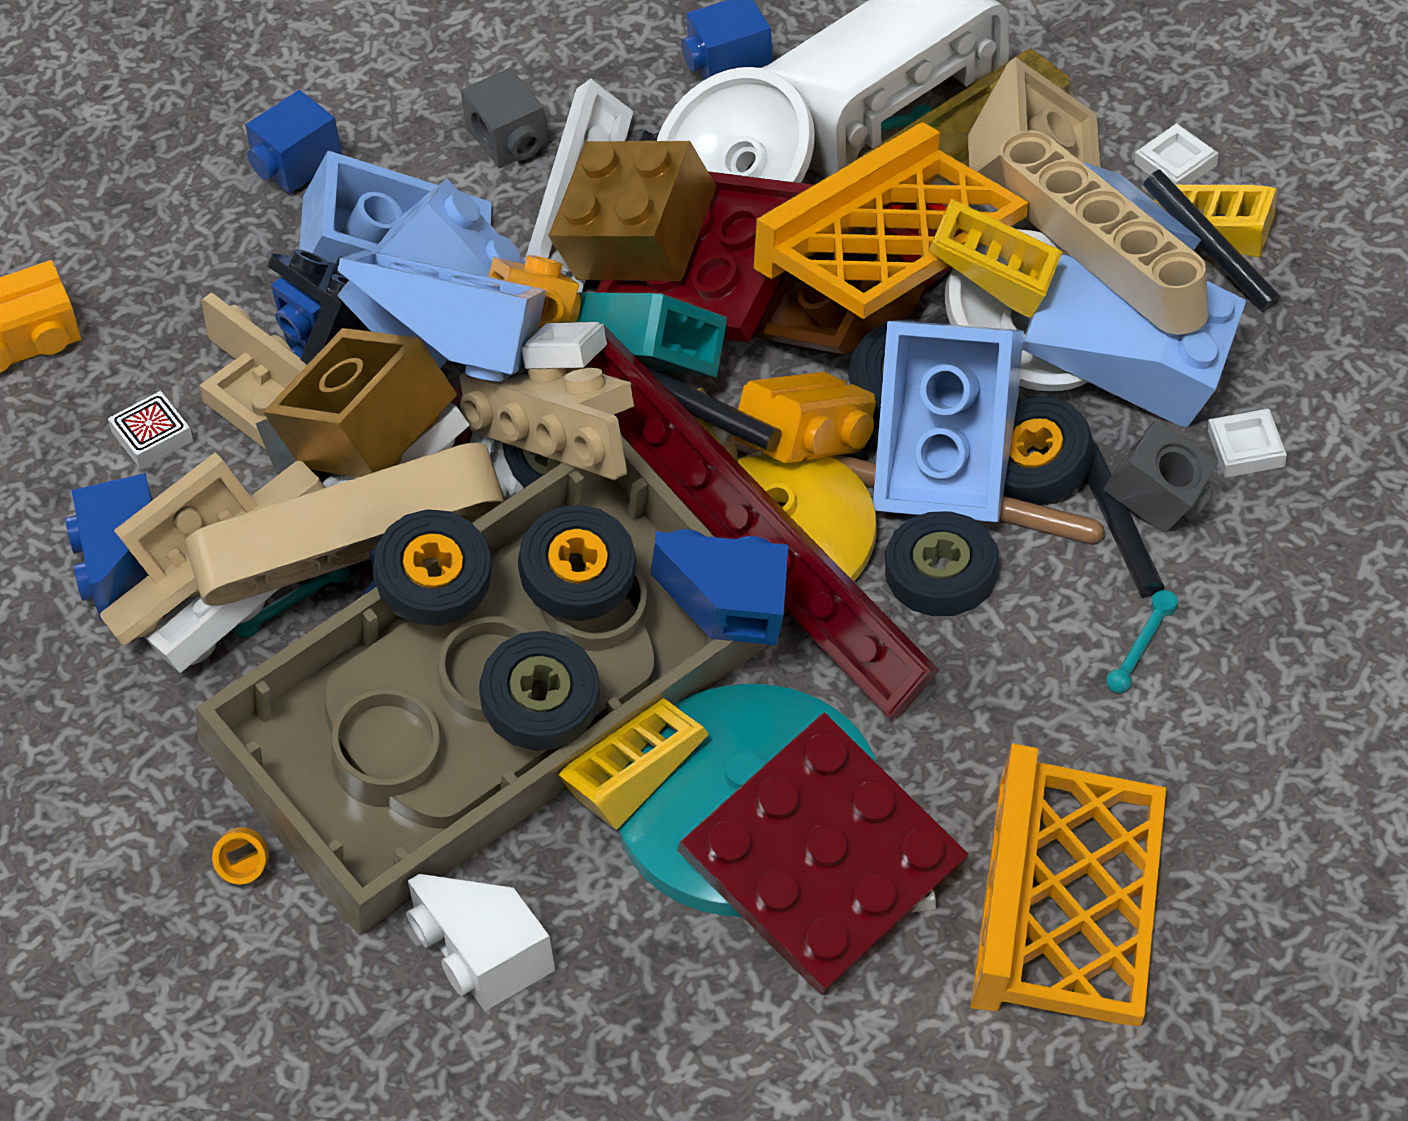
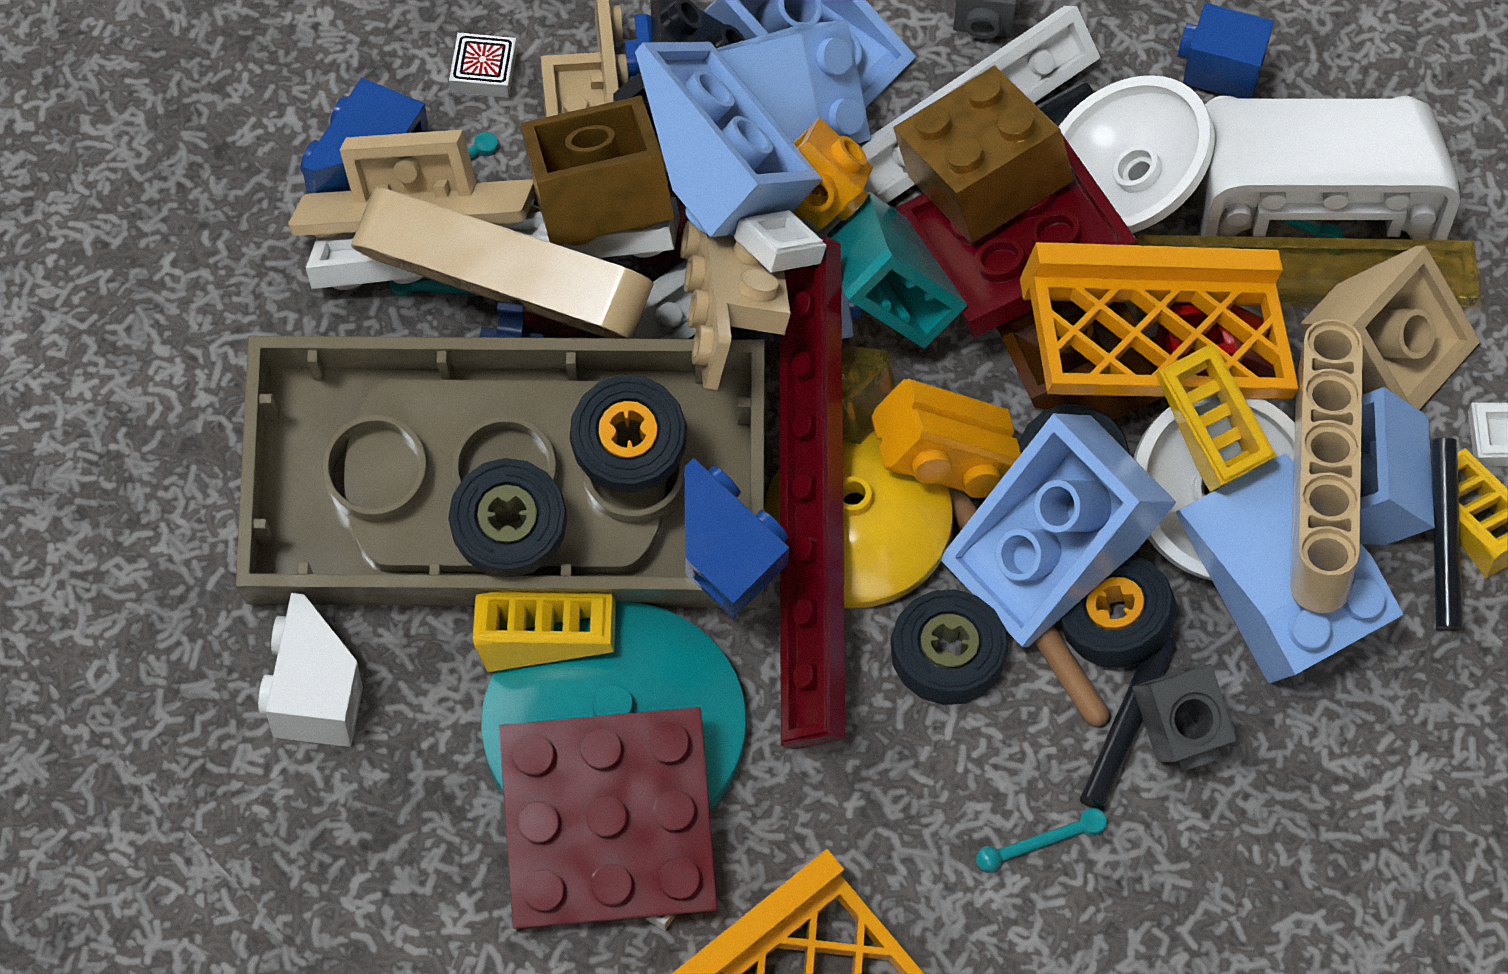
camera: 35 degrees right, 10 degrees up
(246, 868) = (215, 484): light orange hinge -> none
(405, 581) = (545, 348): black bush -> none
(721, 414) = (865, 381): black bar -> none
(1247, 443) = (1299, 736): white tile -> none

